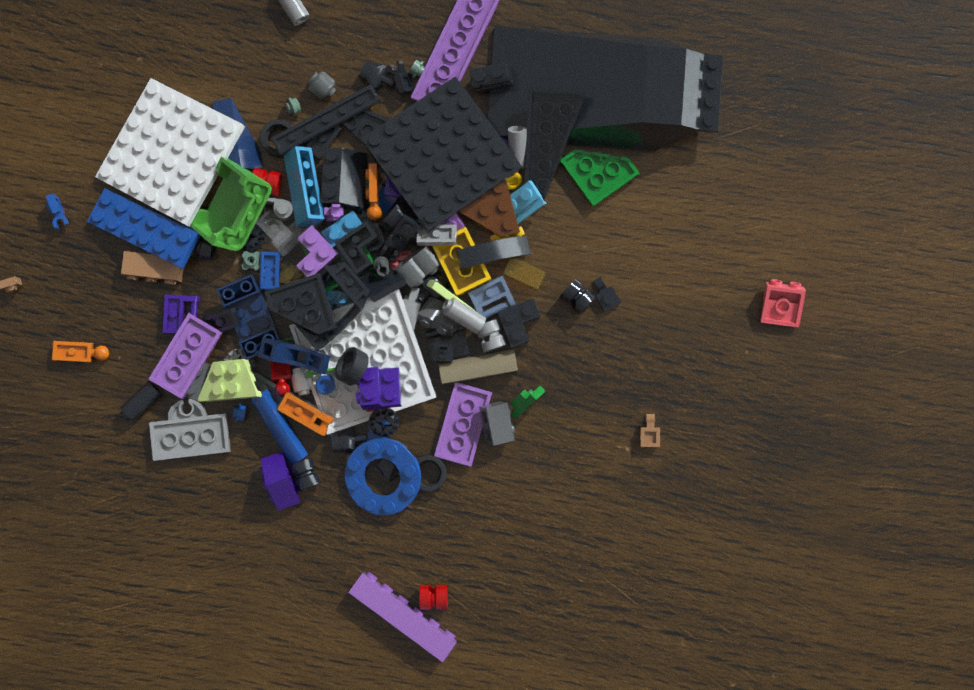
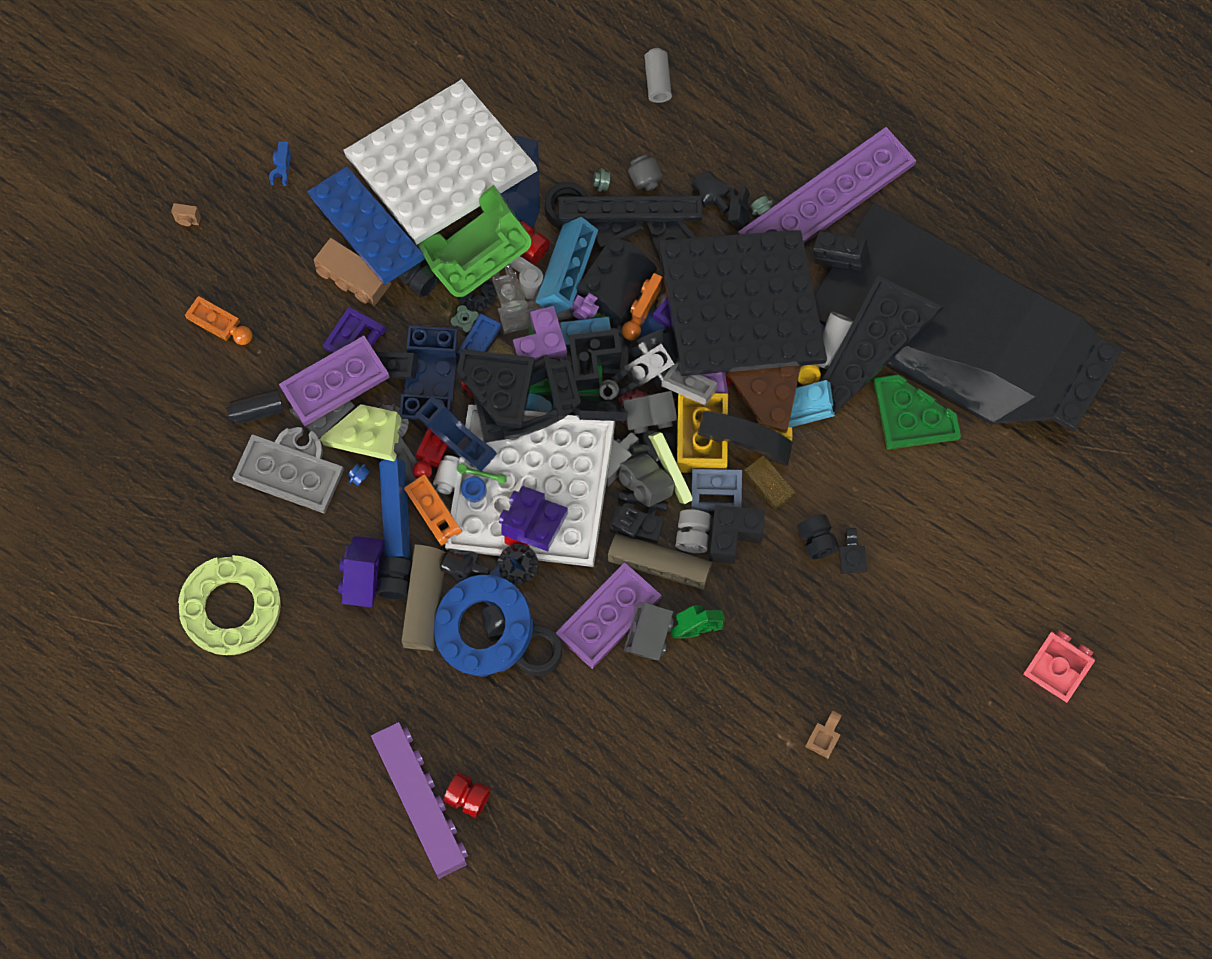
camera: 25 degrees right, 15 degrees down
(175, 560) = (218, 572): none -> yellowish green plate
(331, 476) = (423, 598): none -> dark tan brick
(351, 366) = (515, 477): black tyre -> none
(463, 315) = (673, 486): light grey brick -> none

